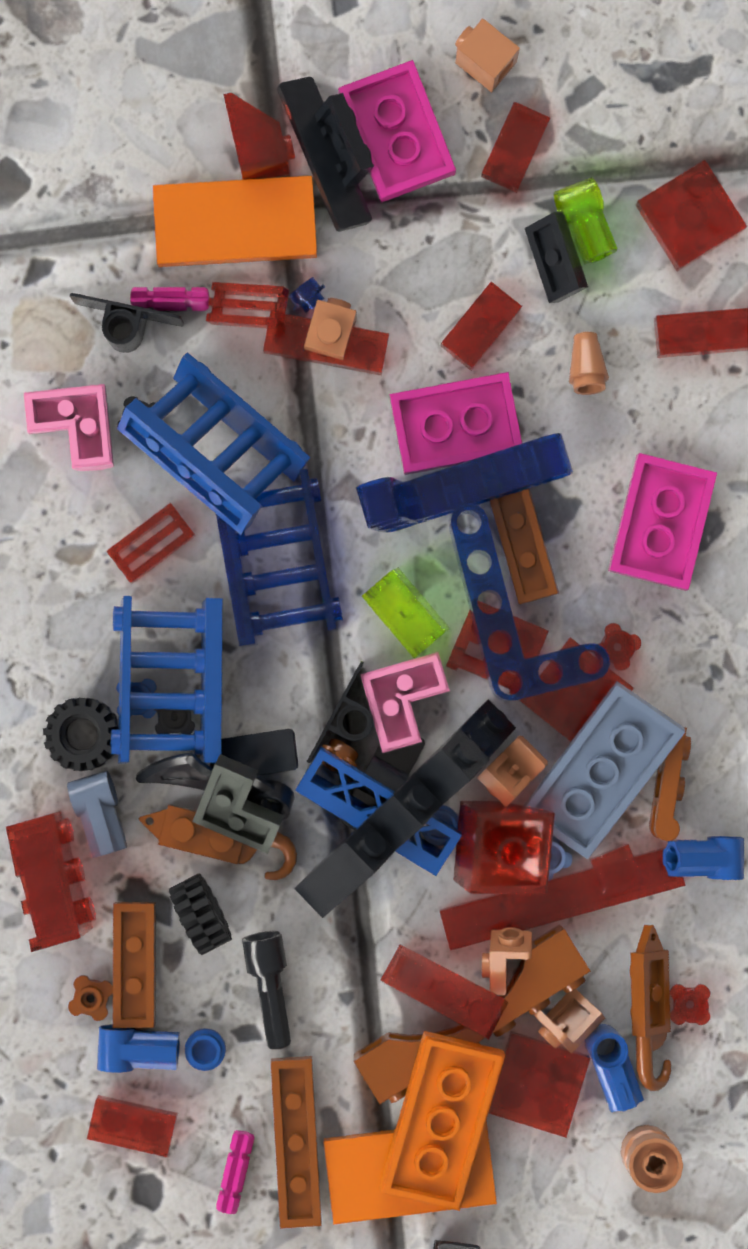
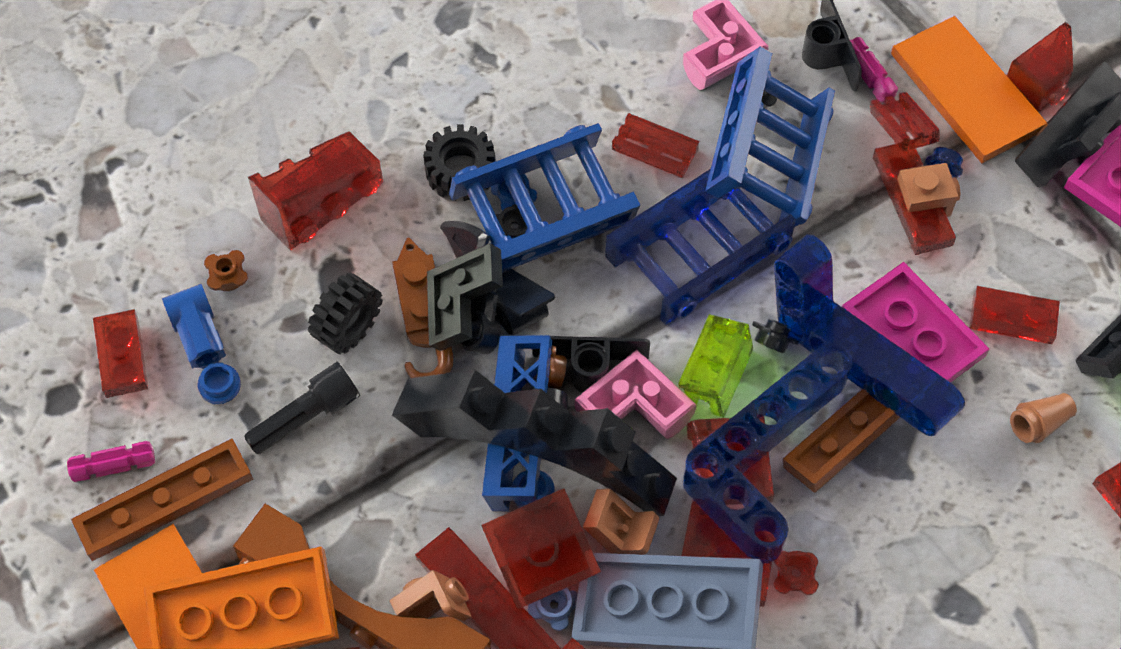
camera: 70 degrees right, 25 degrees down
(95, 803) = (403, 196): sand blue piece -> none
(134, 964) = (272, 290): dark orange plate -> none
(402, 546) = (774, 335): none -> black plate
(444, 991) = (372, 557): clear red plate -> none
(662, 521) = (942, 555): dark pink plate -> none

